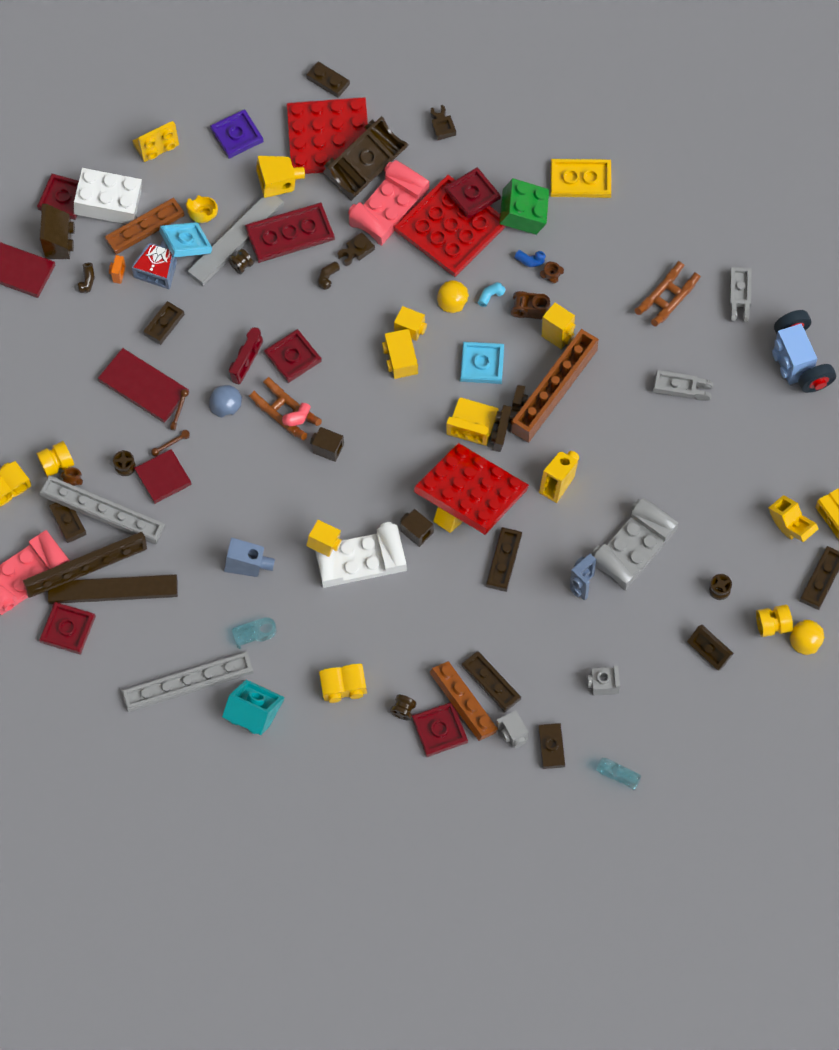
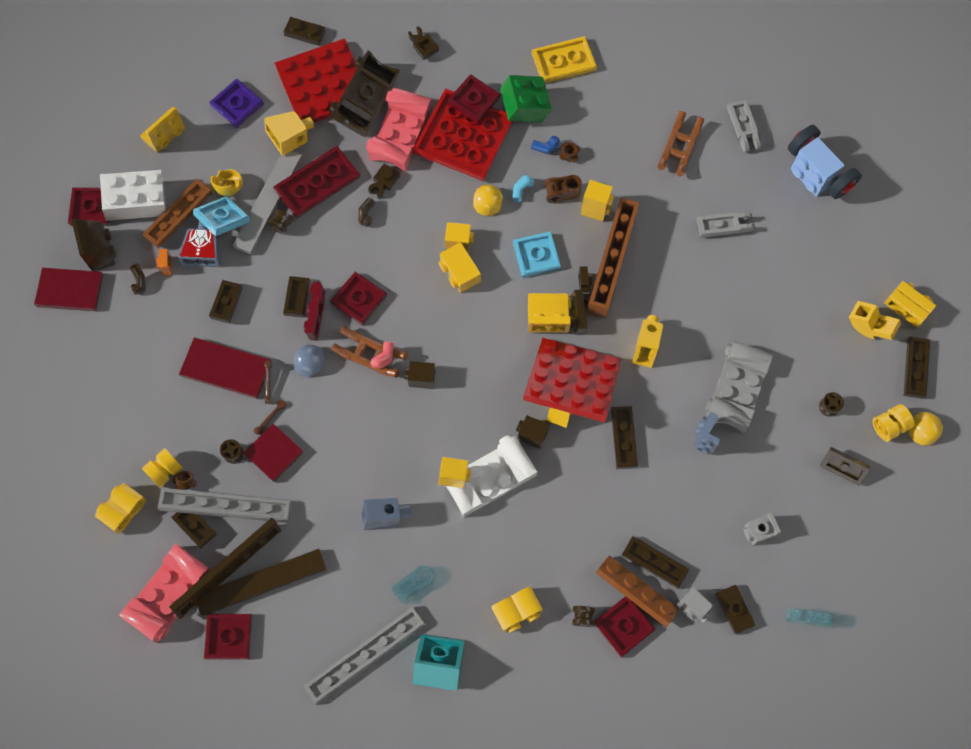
camera: 20 degrees left, 5 degrees up
(233, 337) = (296, 296): none -> dark brown tile

